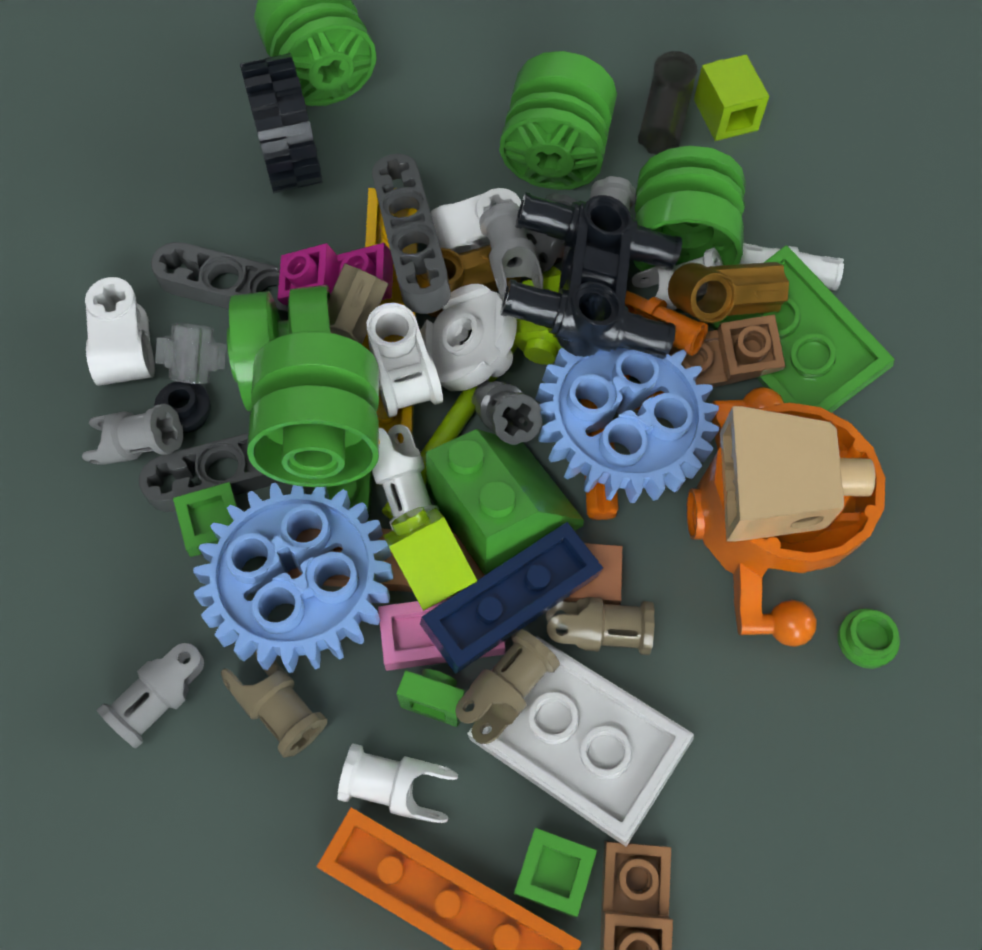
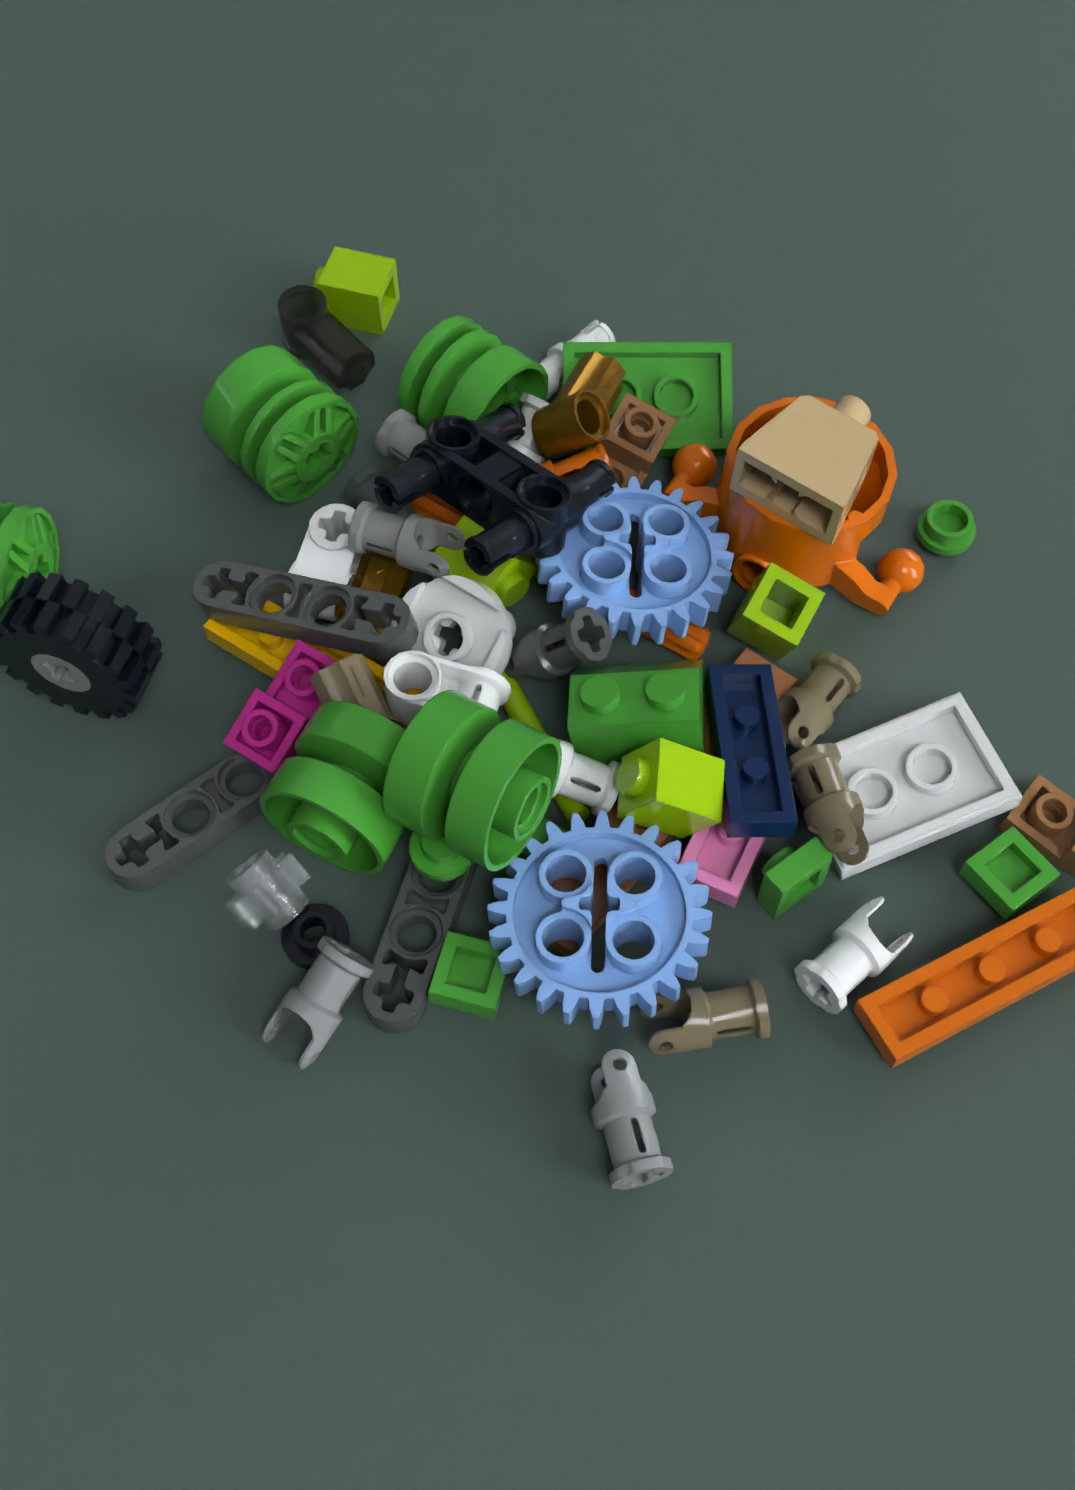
camera: 55 degrees left, 5 degrees down
(117, 334) = (193, 955): white piece -> none
(658, 543) = (775, 612): none -> lime brick

